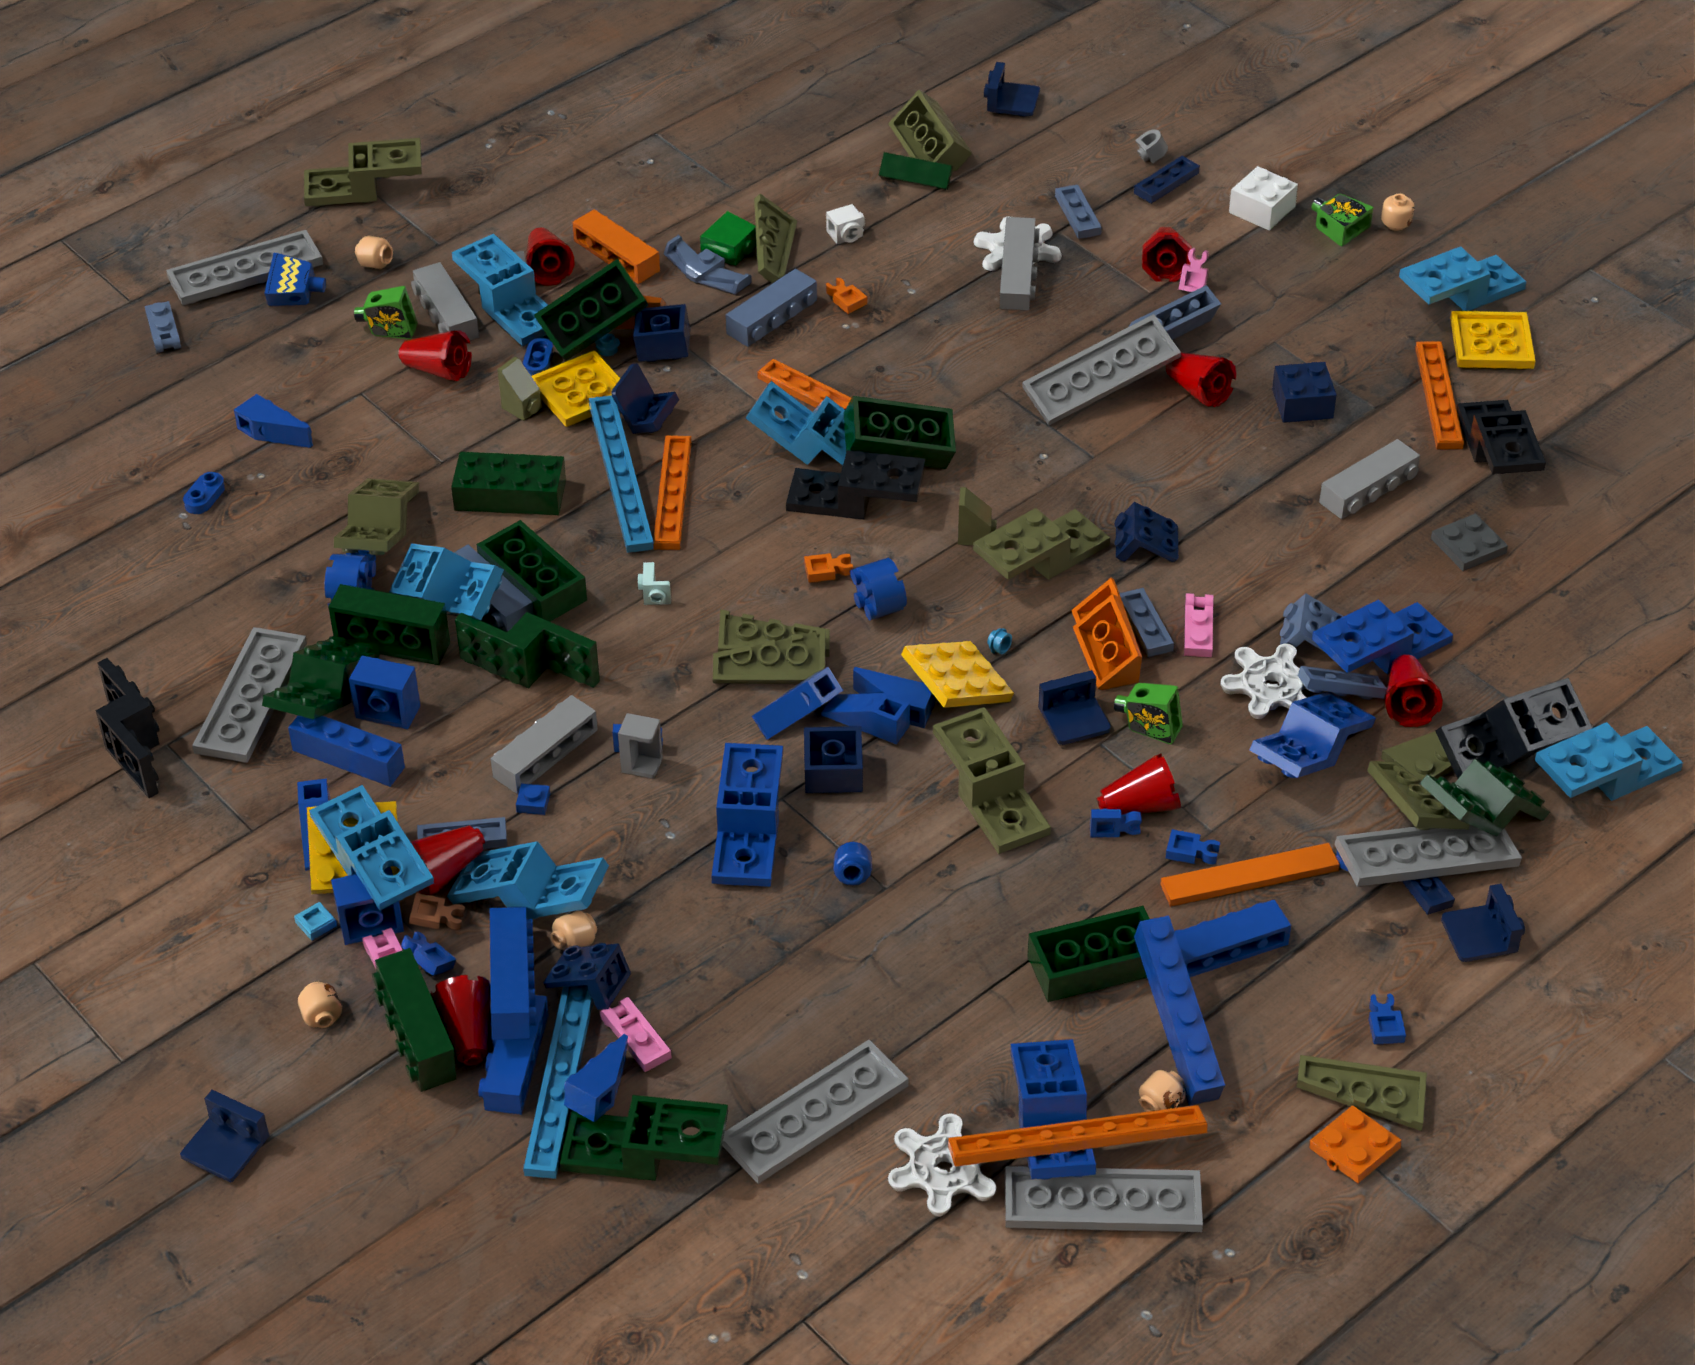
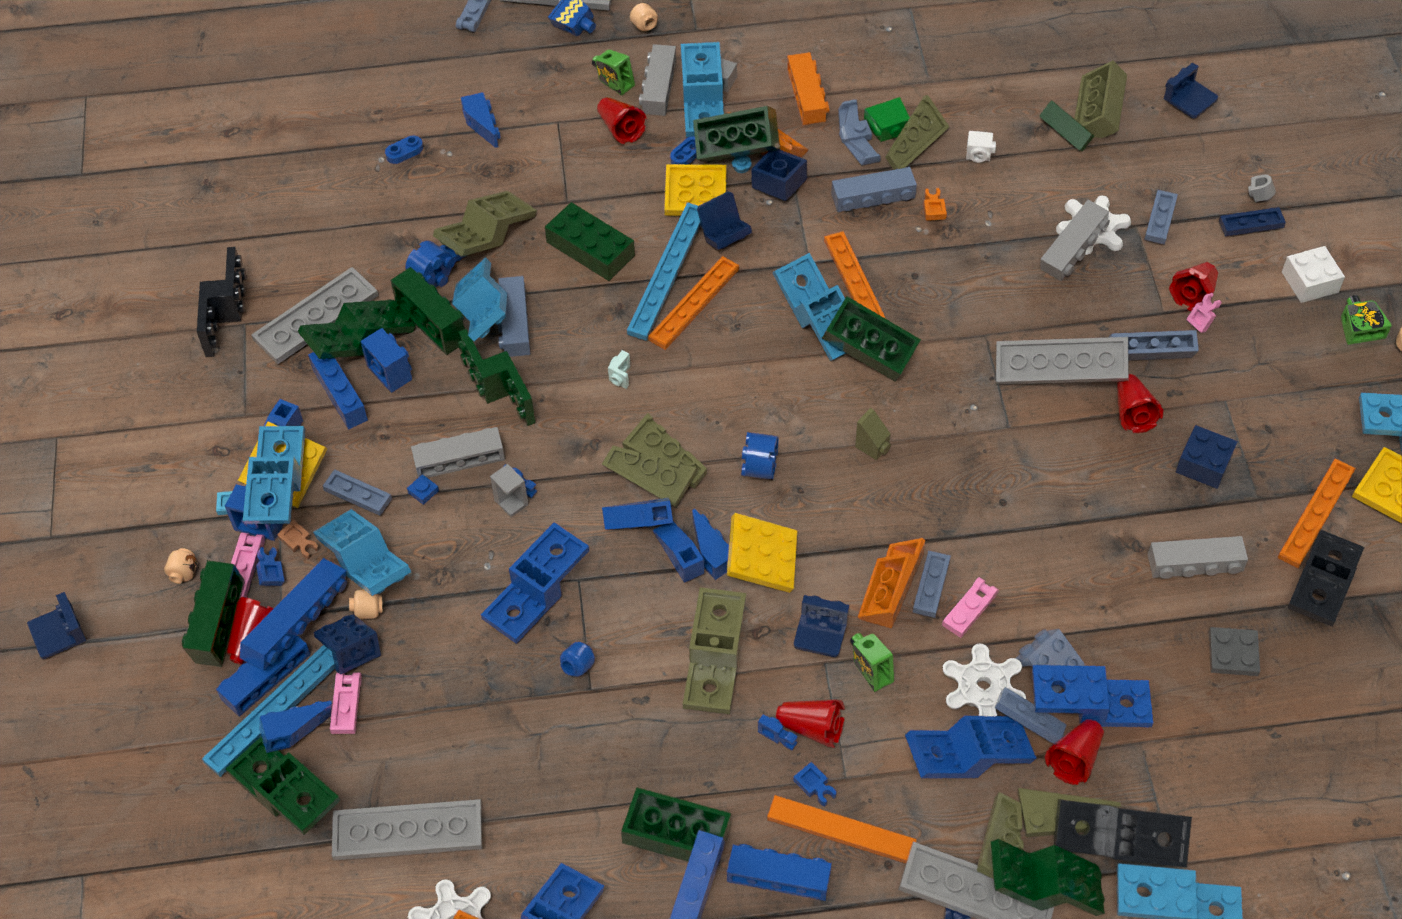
camera: 35 degrees right, 10 degrees up
(448, 854) = (325, 502): red cone -> none
(518, 390) = (649, 171): olive slope -> none
(535, 570) = (548, 318): dark green brick -> none
(548, 257) = (751, 75): red cone -> none
(824, 567) = (744, 415): orange plate -> none
(833, 759) = (625, 572): dark blue brick -> none
(861, 477) = (814, 363): black bracket -> none
(999, 641) = (817, 541): dark azure plate -> none
(1041, 544) = (905, 481): olive bracket -> none
(1147, 529) = (991, 512): dark blue bracket -> none

